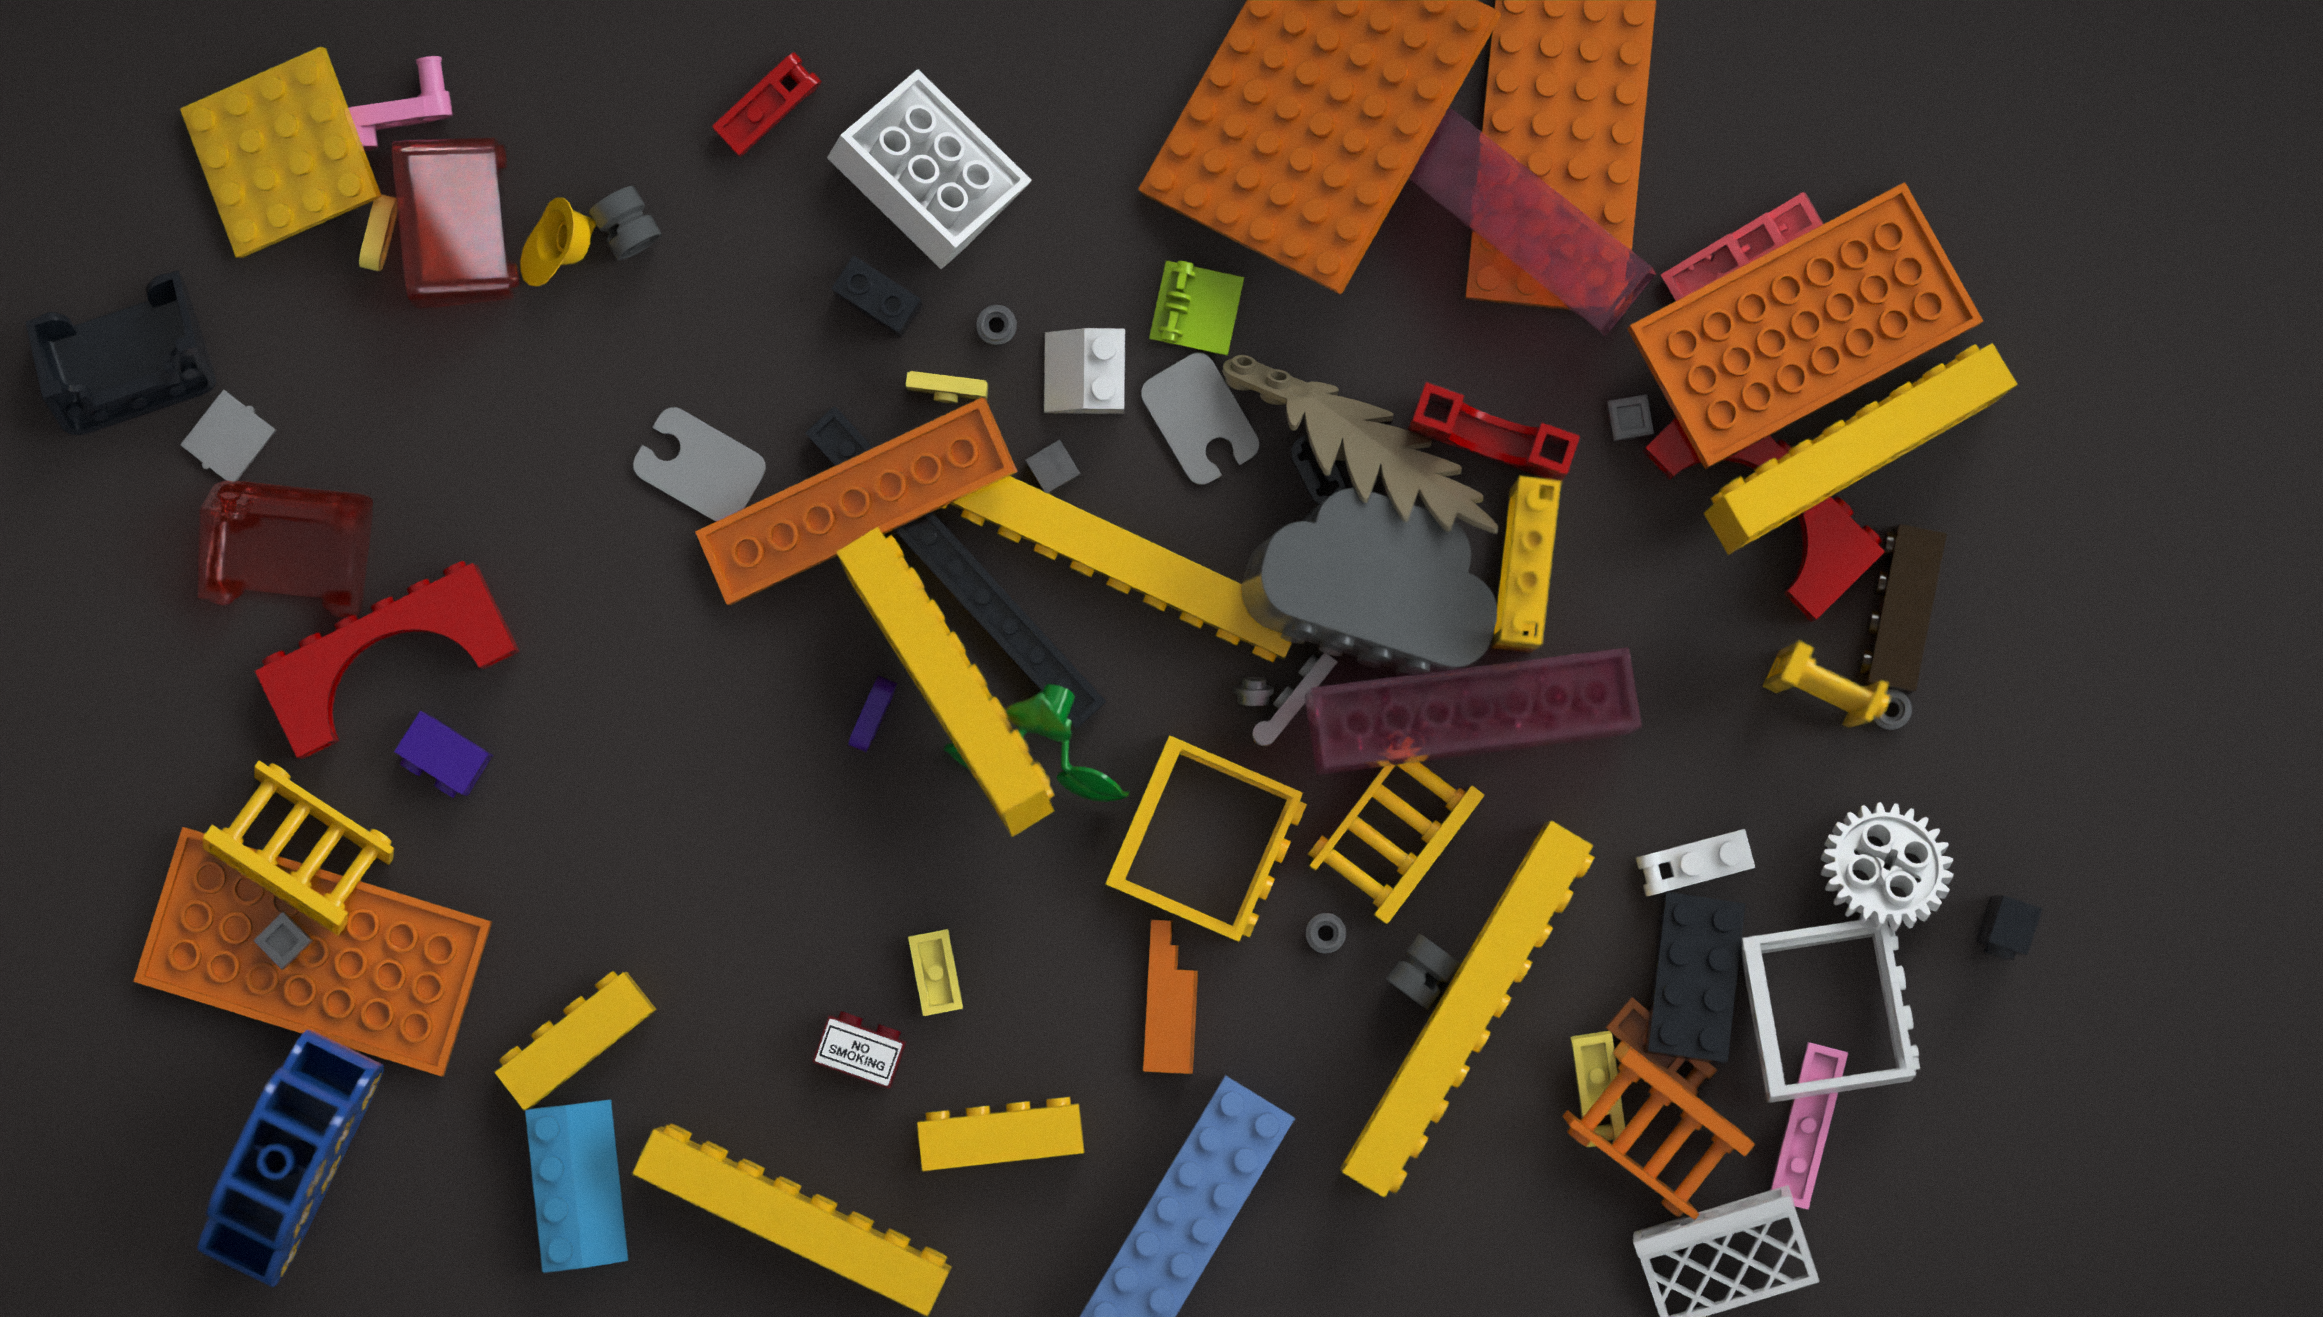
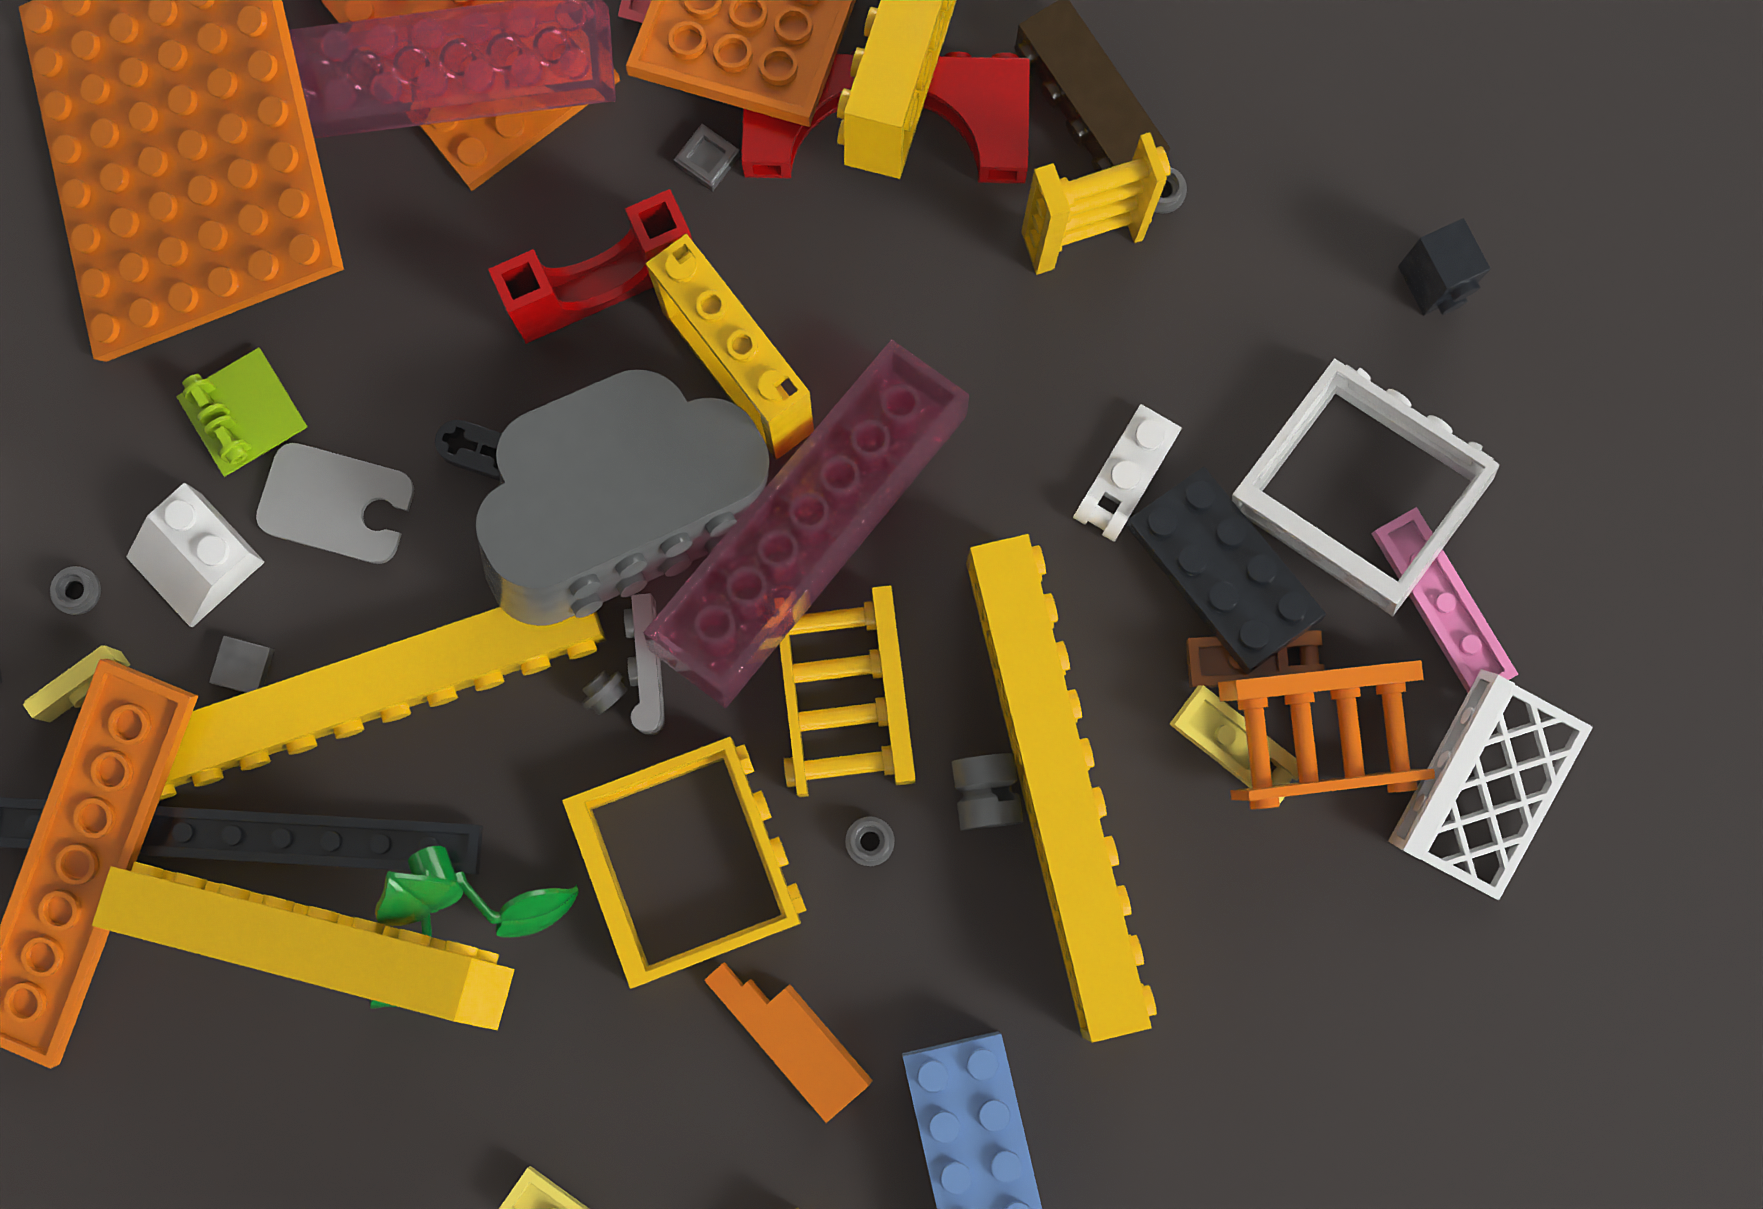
camera: 45 degrees left, 5 degrees down
(872, 714) = (278, 1038): dark purple beam -> none
(1353, 433) = (490, 382): dark tan plant -> none
(1900, 836) = (1292, 318): white gear -> none

